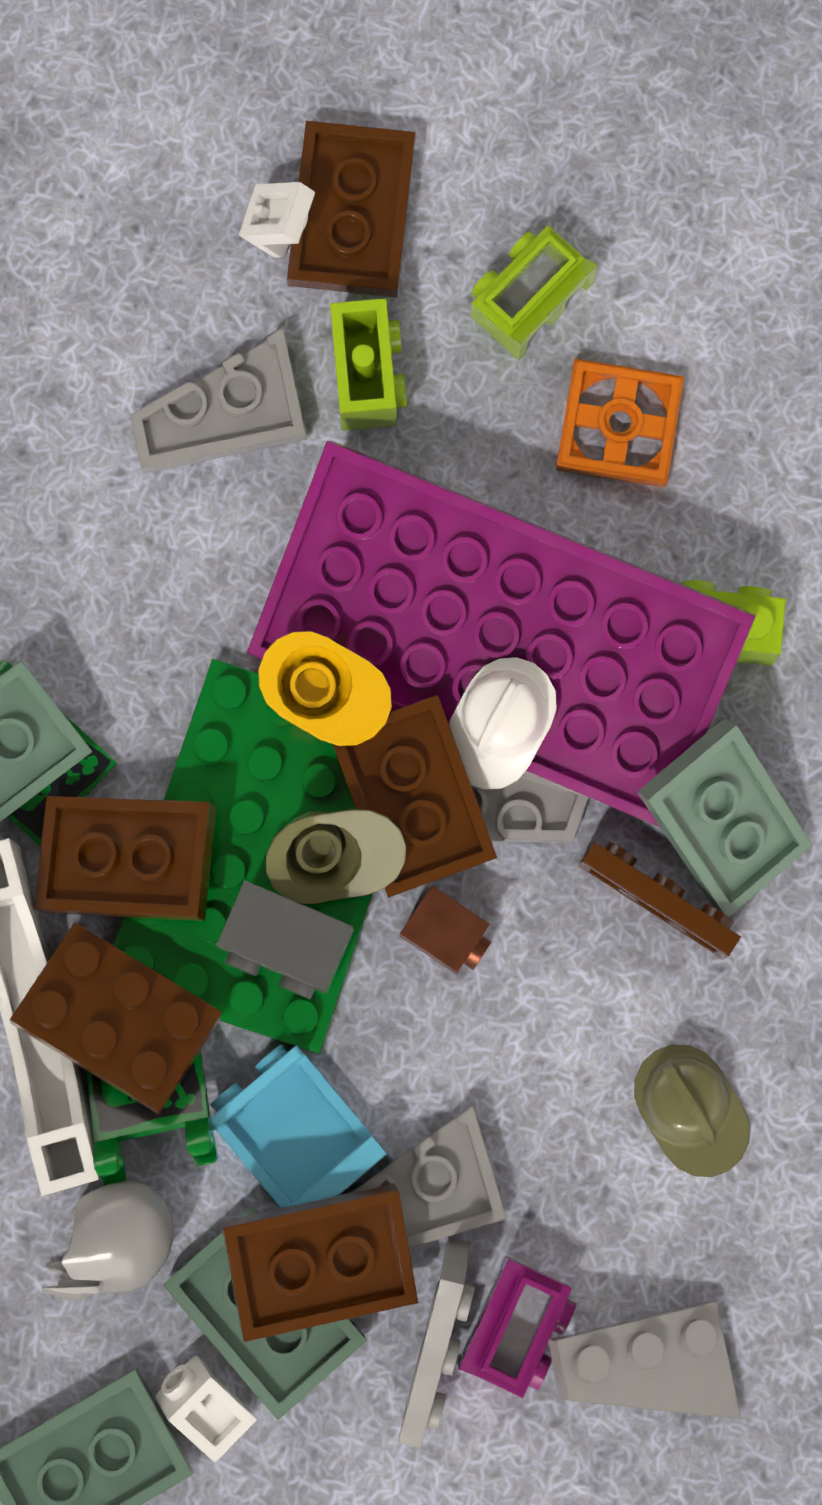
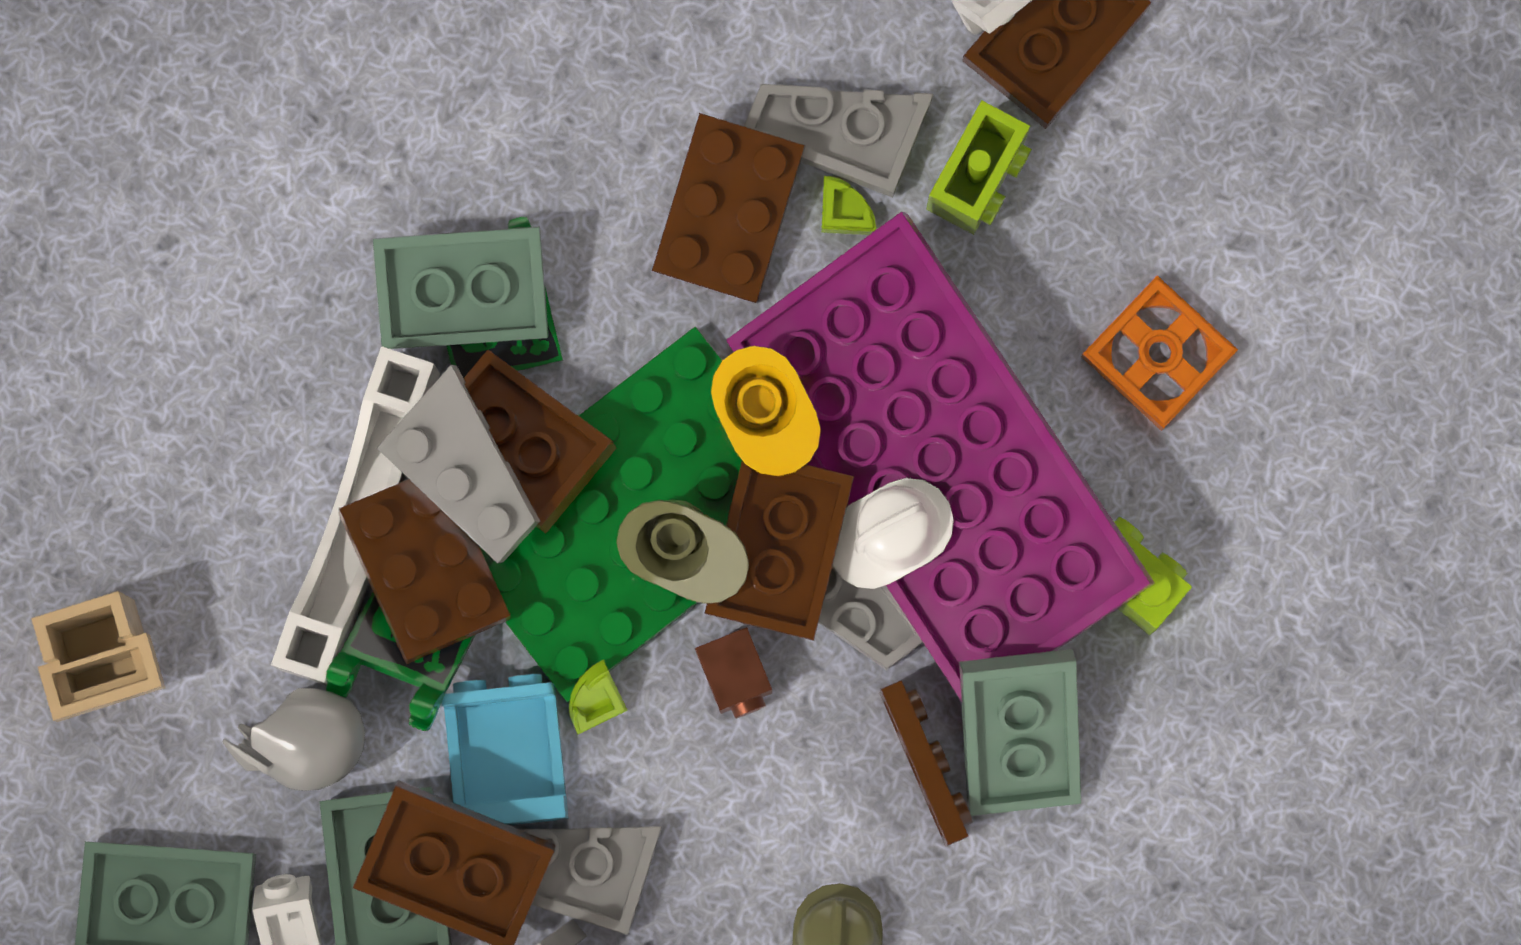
camera: 35 degrees right, 0 degrees up
(89, 912) = (458, 466): none -> light grey wing
(172, 538) = (728, 208): none -> reddish brown plate
(273, 475) = (845, 209): none -> lime tile
(284, 939) = (598, 590): dark grey brick -> none
(342, 1033) = (595, 699): none -> lime tile
(530, 289) = (1158, 194): lime window -> none

